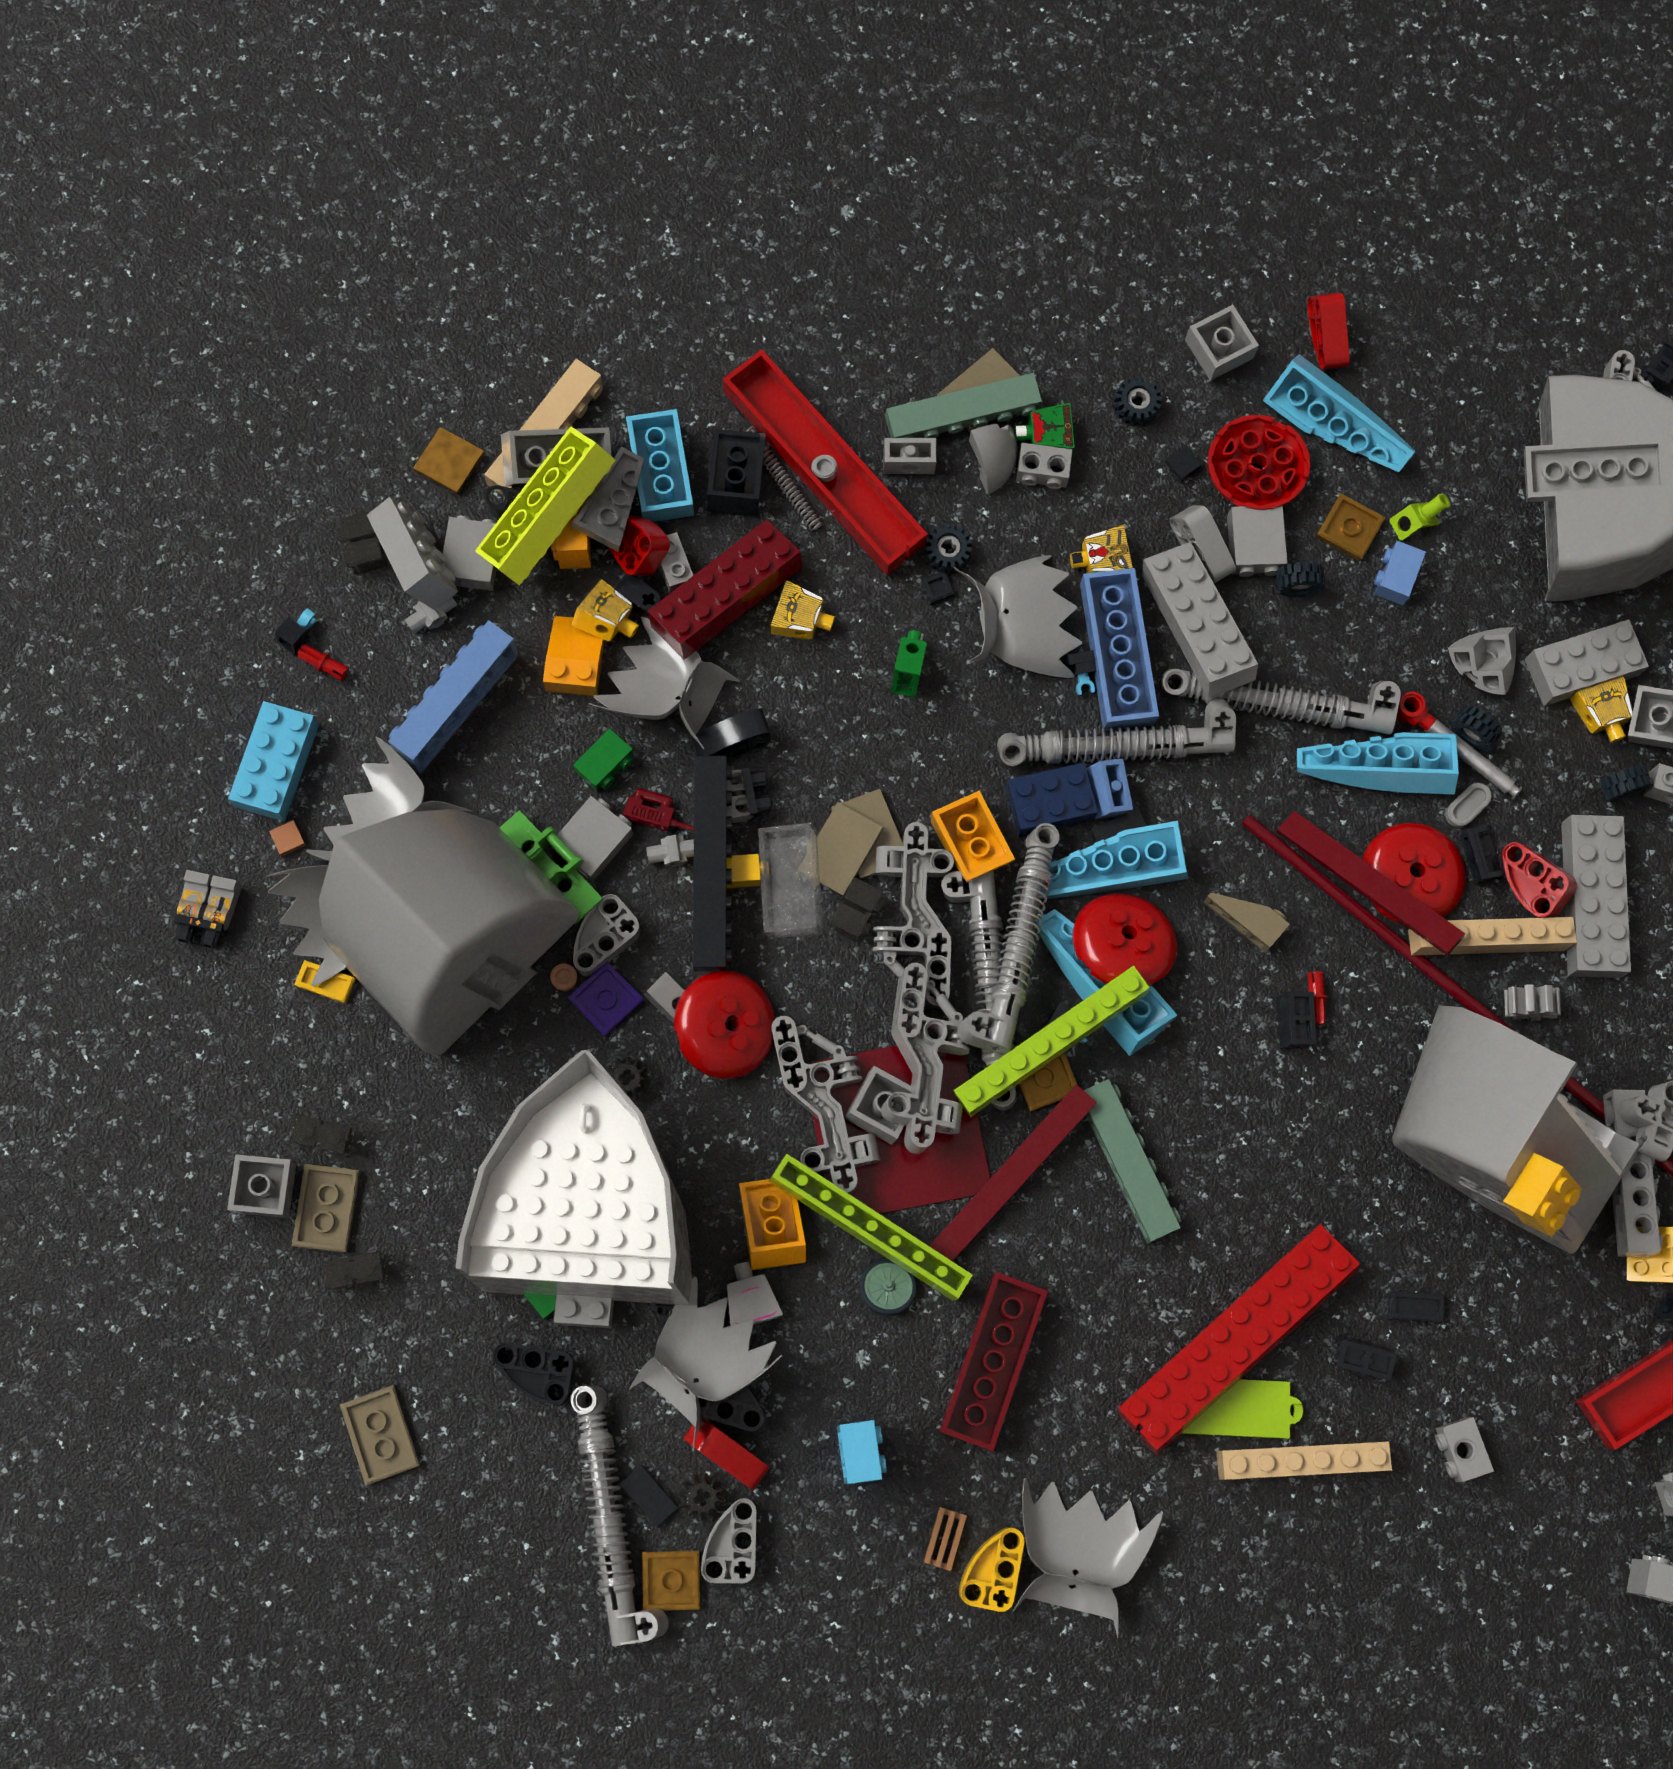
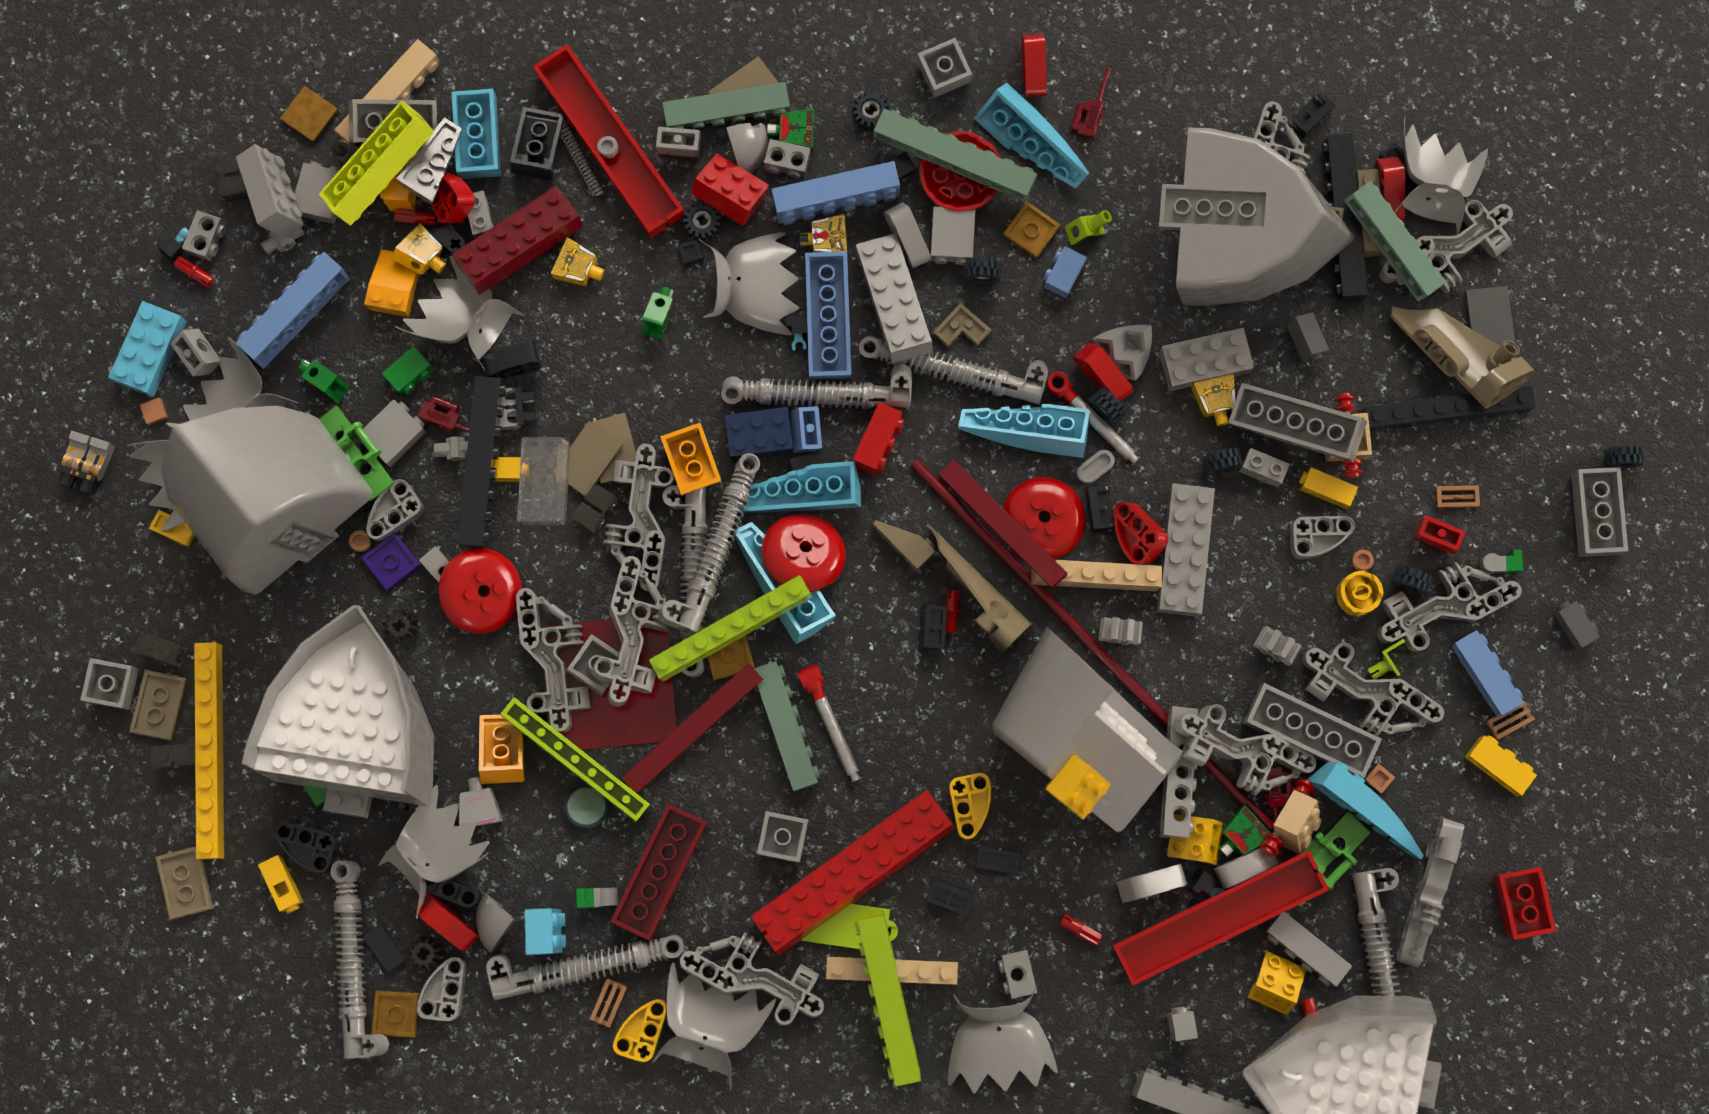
camera: 10 degrees right, 5 degrees up
(326, 616) = (198, 235): none -> light grey brick
(335, 759) = (195, 352): none -> light grey brick
(397, 1261) = (209, 751): none -> yellow brick
(500, 780) = (323, 380): none -> green torso
(507, 1424) = (281, 884): none -> yellow brick
(592, 573) = (415, 217): none -> red axle
(784, 1448) = (492, 922): none -> light grey brick
(903, 1497) = (576, 969): none -> light grey piece
(915, 1402) = (596, 897): none -> leg
(980, 506) = (730, 189): none -> red brick
(1110, 500) = (836, 192): none -> medium blue brick
(1144, 1301) = (782, 837): none -> light grey brick
(1154, 1100) = (812, 683): none -> flat silver piece
(1177, 1502) = (750, 979): none -> light grey beam
(1202, 792) = (878, 439): none -> red brick
(1252, 442) = (955, 155): none -> sand green brick
(1285, 644) = (961, 321): none -> dark tan tile
(1310, 1496) = (888, 997): none -> lime brick
(1382, 1233) = (976, 799): none -> yellow beam
(1386, 1002) = (997, 608): none -> dark tan panel
(1408, 381) = (1094, 113): none -> dark red piece
(1436, 1552) = (1001, 1054): none -> light grey piece
(1462, 684) = (1102, 371): none -> red beam
(1533, 1385) = (1081, 930): none -> red axle
(1615, 1317) = (1151, 883): none -> light grey beam

